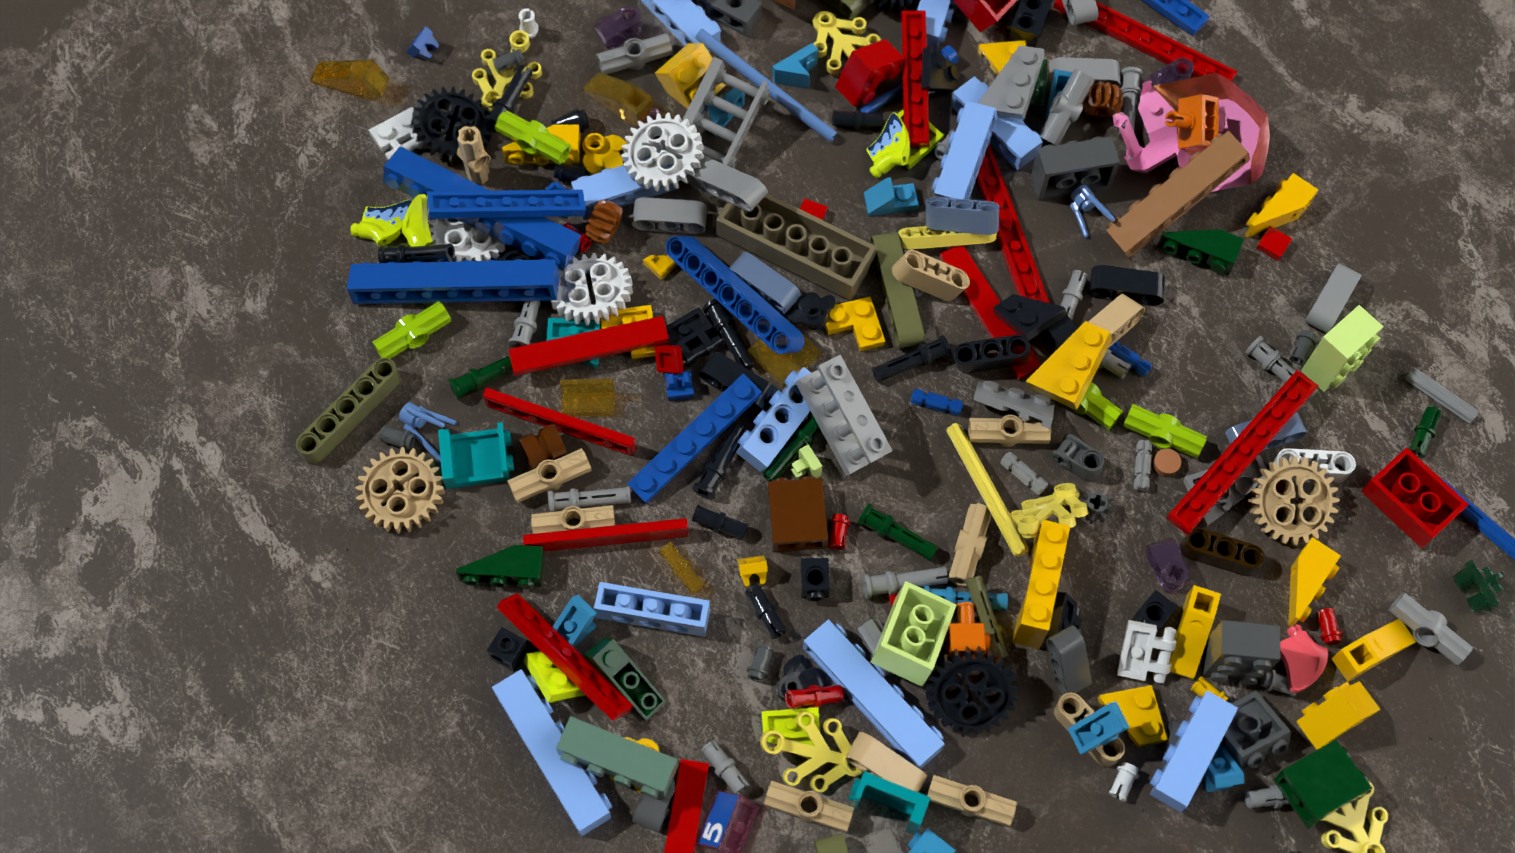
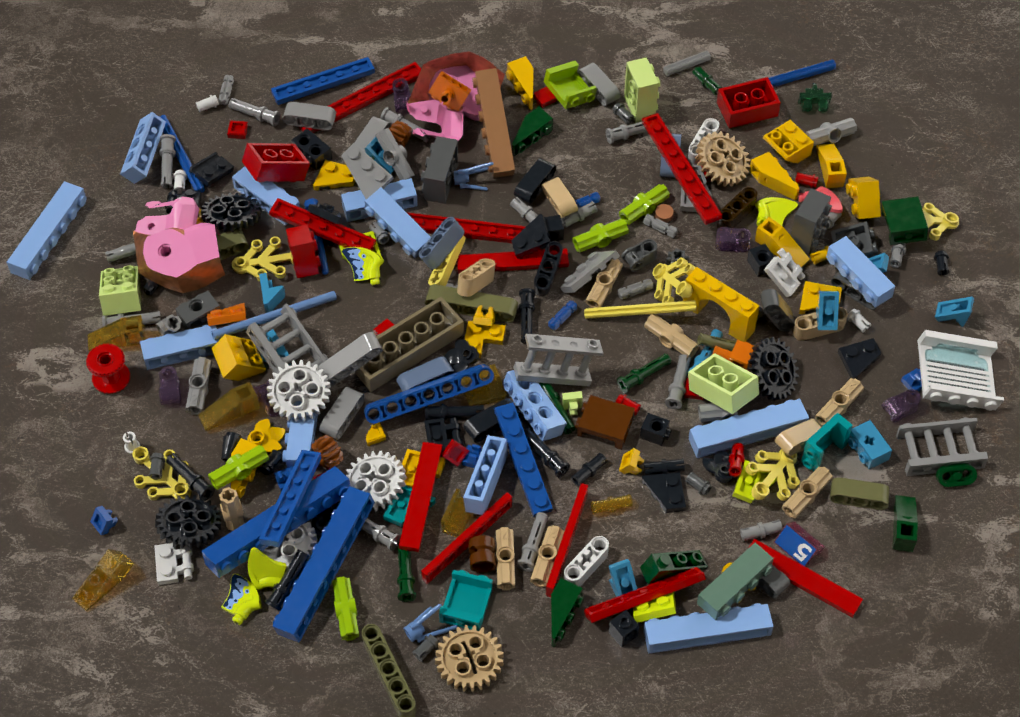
camera: 65 degrees left, 10 degrees down
(571, 573) = (588, 554): none -> white beam
(648, 404) = (485, 475): none -> light blue brick
(652, 609) = (636, 527): light blue brick -> none
(734, 629) = (667, 490): none -> black wing
(740, 39) = (227, 315): none -> orange wing
(857, 119) = (329, 275): black pin -> none
(878, 311) = (484, 319): none -> yellow tile
(887, 199) = (400, 281): dark azure slope -> none
(1065, 804) = (859, 356): none -> black wing
(1072, 366) = (586, 225): yellow wedge -> none
(1250, 601) = (775, 208): none -> neon yellow arm
(1307, 263) = (568, 85): none -> lime panel
(1374, 578) = (790, 142): none -> yellow slope

